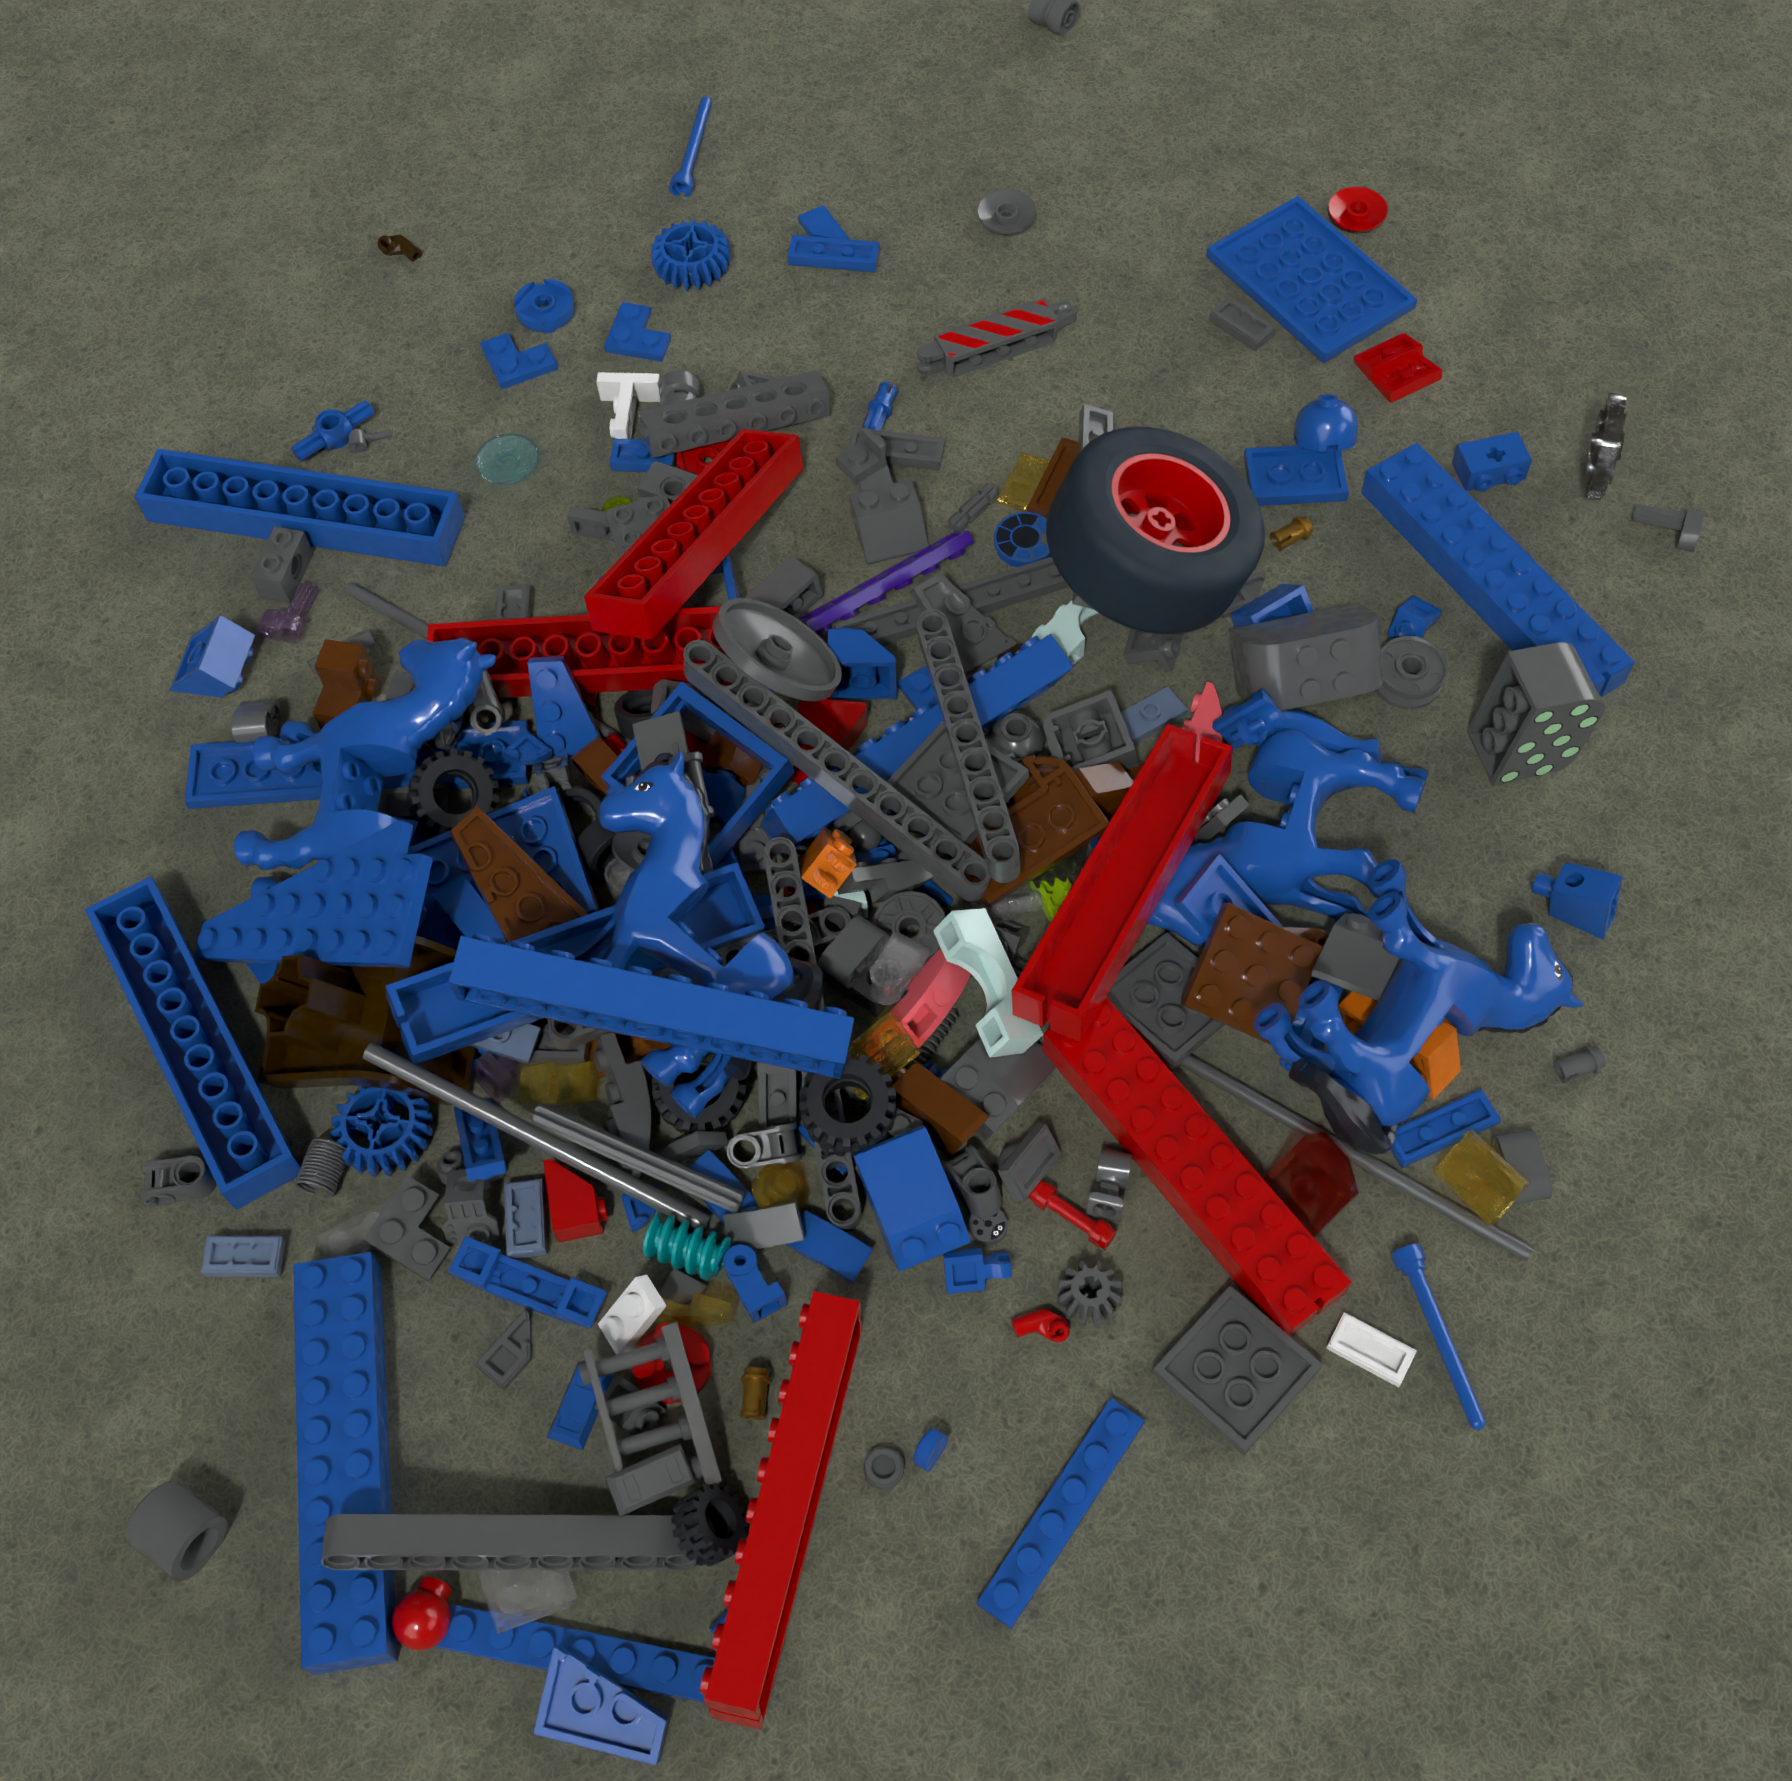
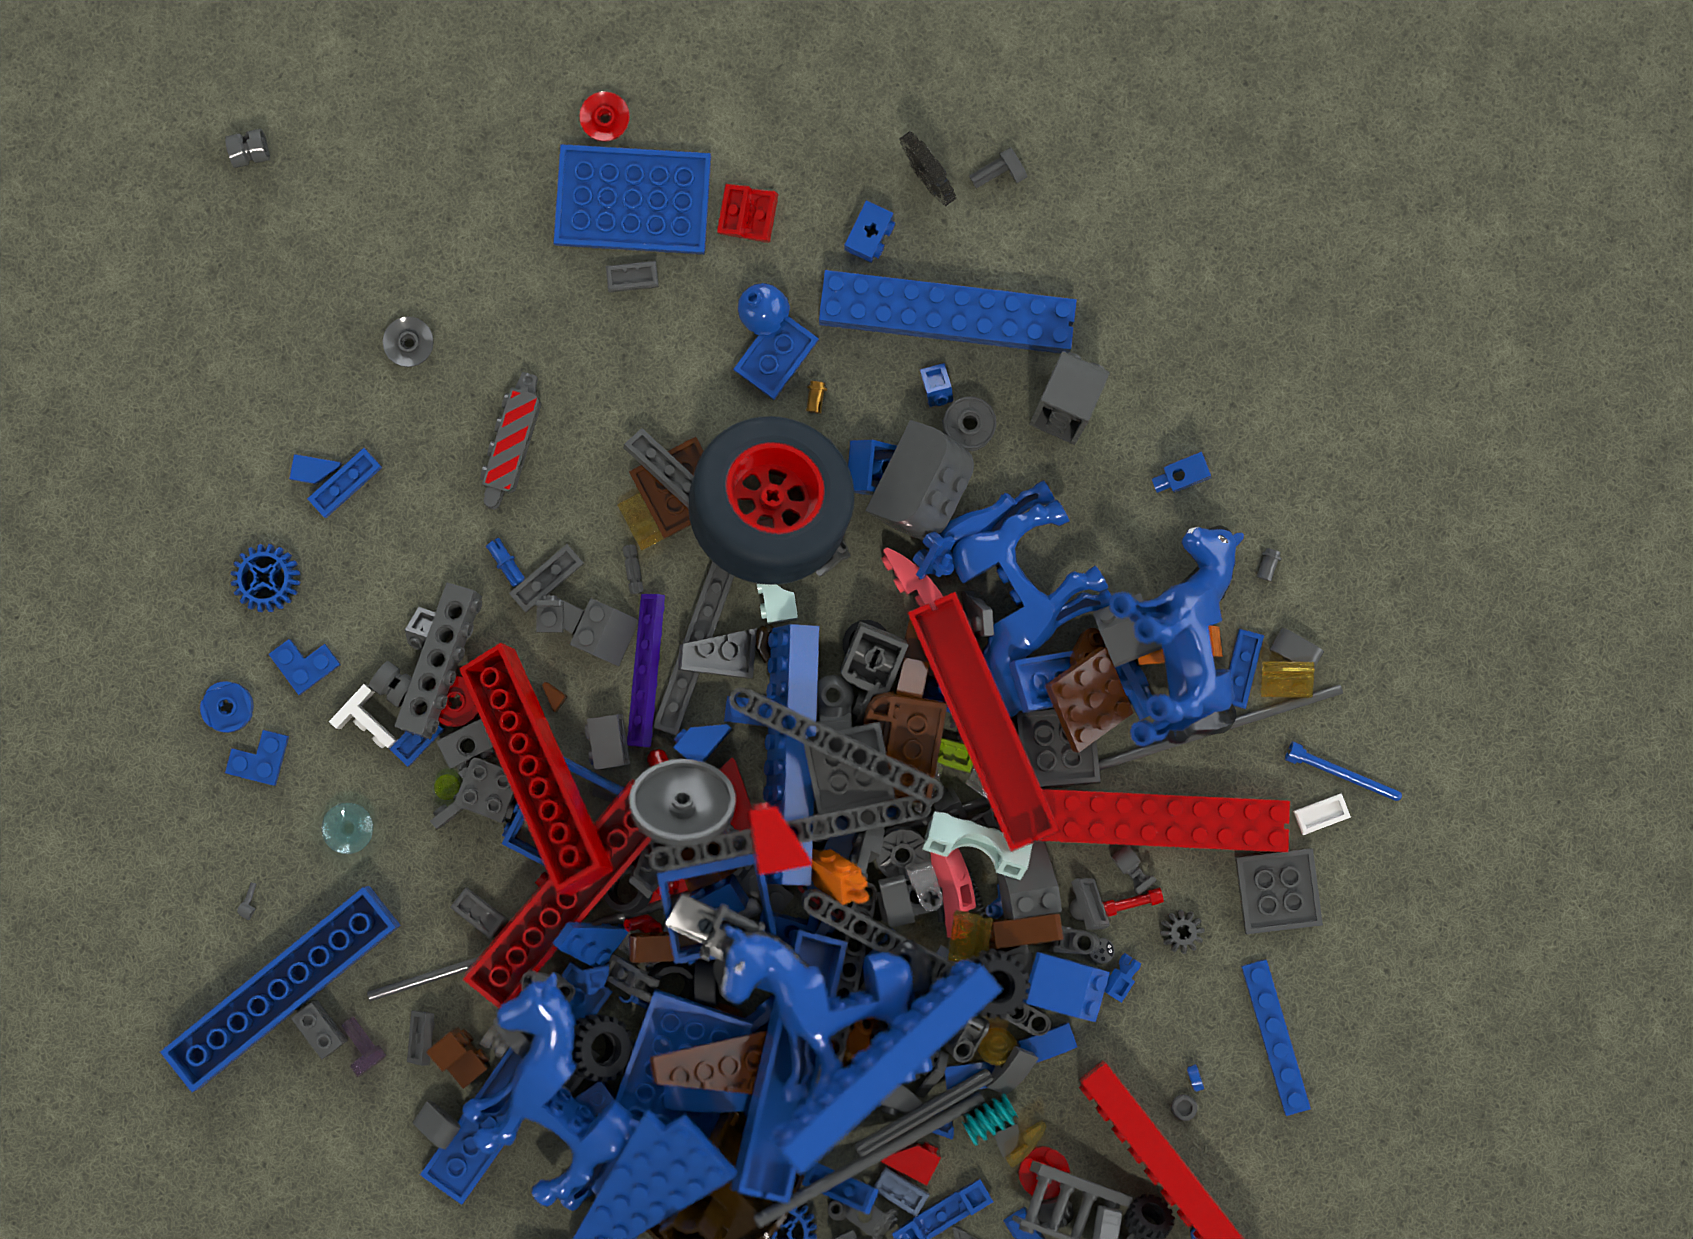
camera: 55 degrees left, 25 degrees up
(214, 659) = (361, 1120): blue slope -> none
(332, 429) = (225, 936): blue axle -> none
(398, 246) = (82, 762): dark brown arm -> none
(632, 1314) = (1007, 1177): white plate -> none
(682, 180) = (186, 527): blue piece -> none
(749, 1284) = (1034, 1101): blue leg -> none
(754, 1393) = (1095, 1143): pearl gold pin -> none
(785, 528) = (555, 696): none -> reddish brown slope
(807, 740) = (774, 842): none -> red slope
(1021, 539) = (682, 558): tile -> none
(1044, 1323) = (1177, 965): red arm -> none
(1153, 714) = (869, 594): sand blue plate -> none
(1314, 1181) = (1220, 767): clear red slope -> none

